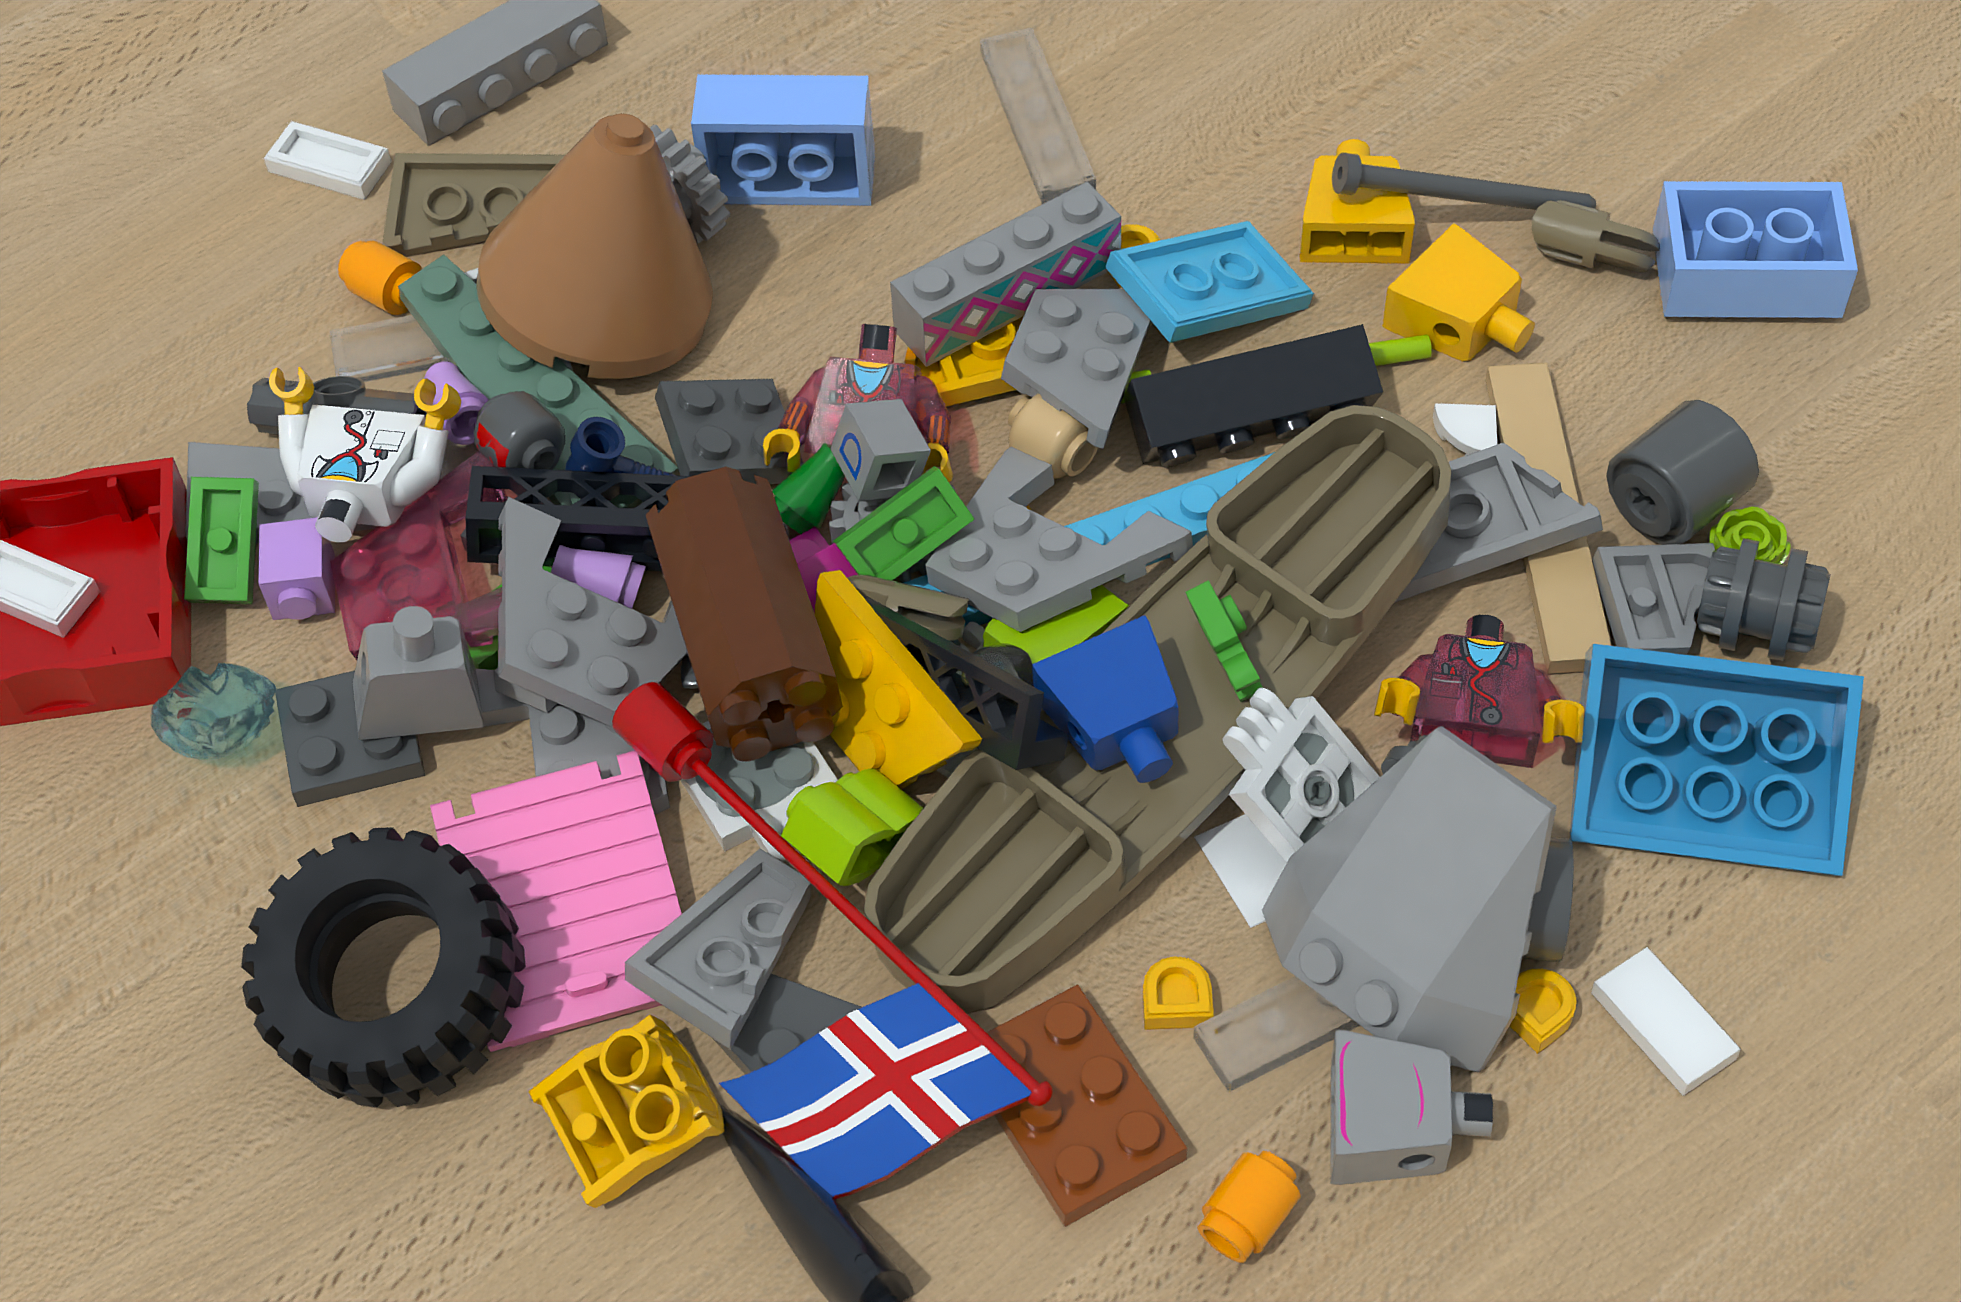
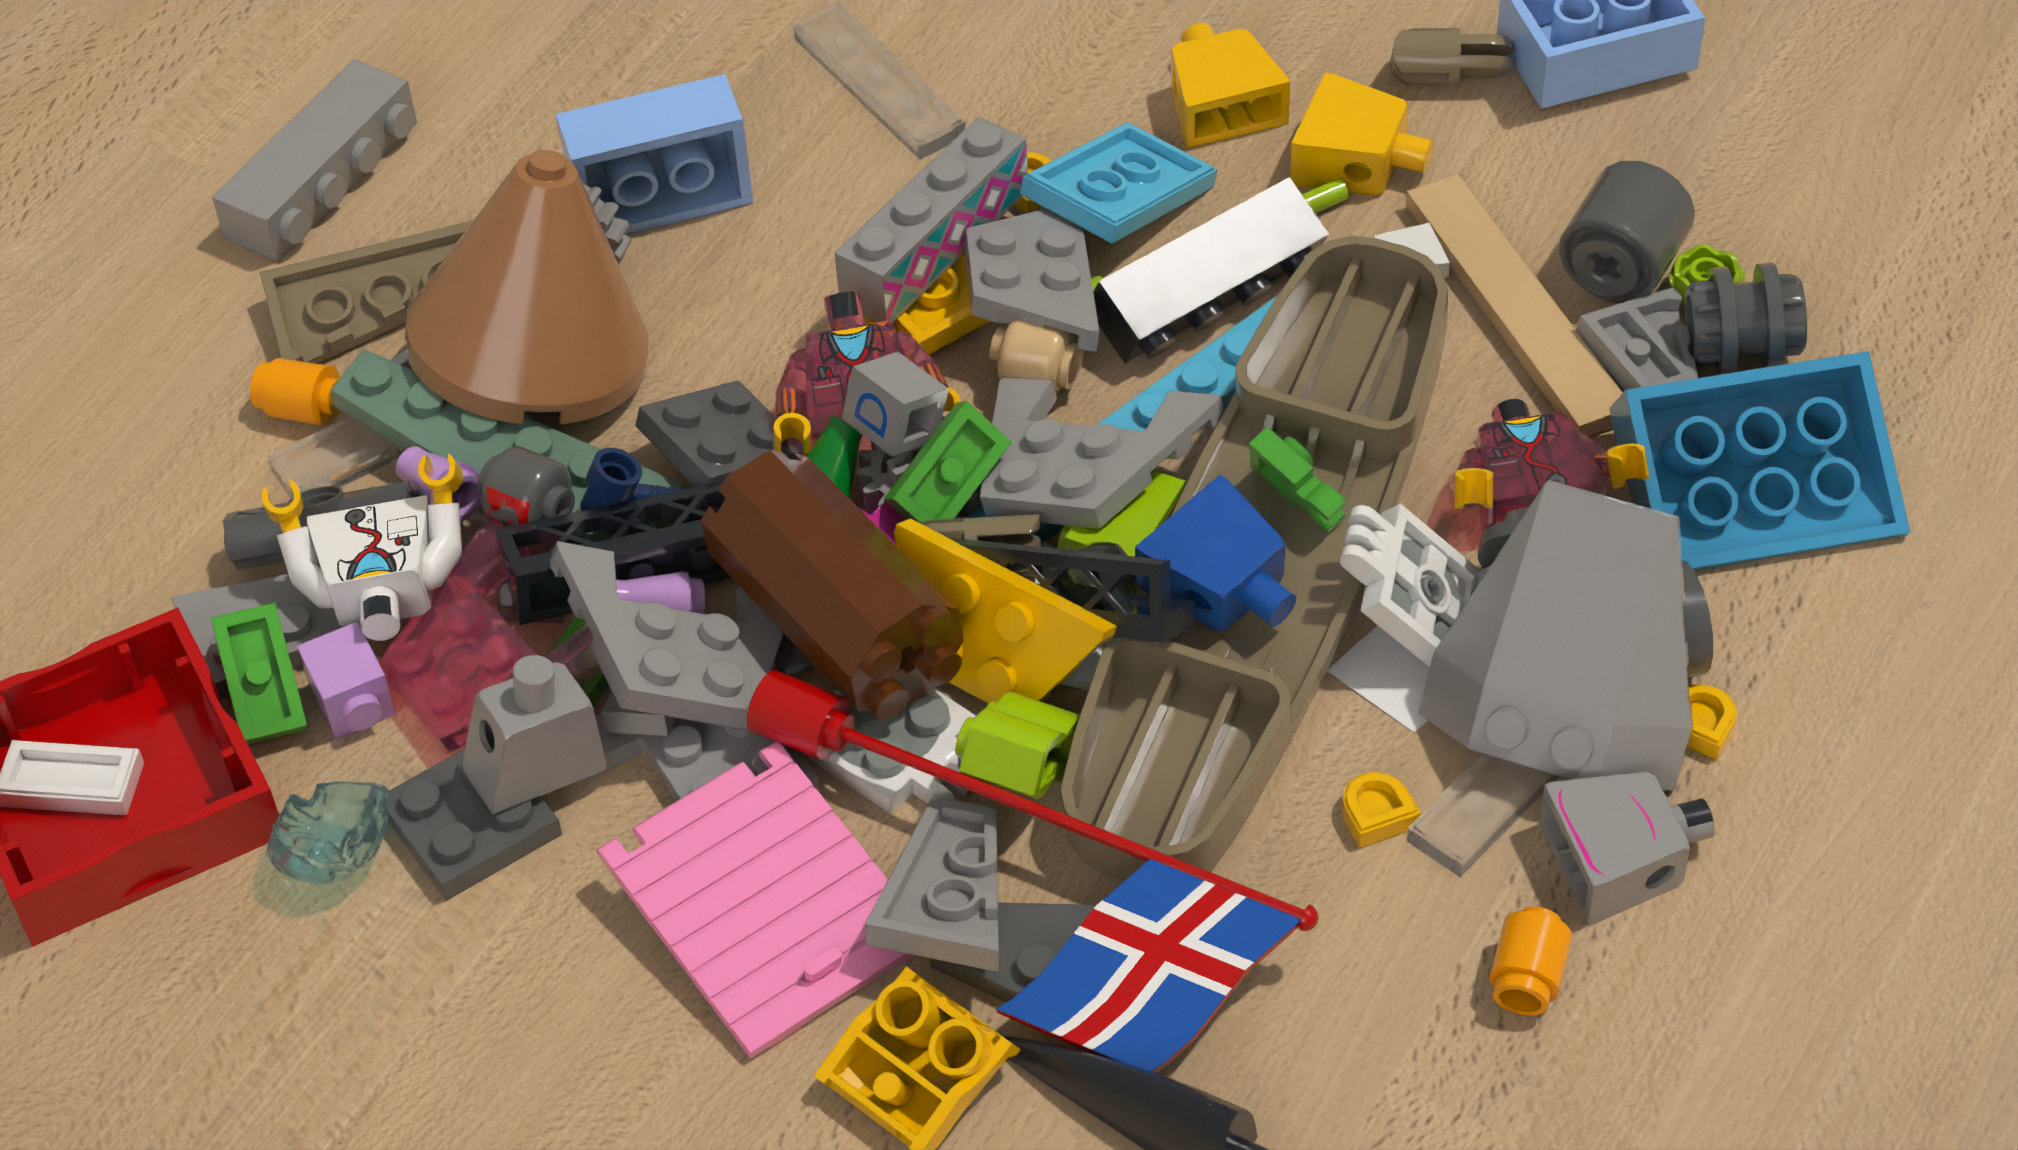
camera: 20 degrees left, 5 degrees down
(325, 911) = (613, 917): black tyre -> none
(327, 160) = (181, 300): white tile -> none
(1101, 1123) = (1366, 939): dark orange plate -> none
(1351, 173) = (1218, 49): dark grey bar -> none
(1499, 516) = (1491, 312): light grey wing -> none
(1665, 1021) = (1816, 697): white tile -> none

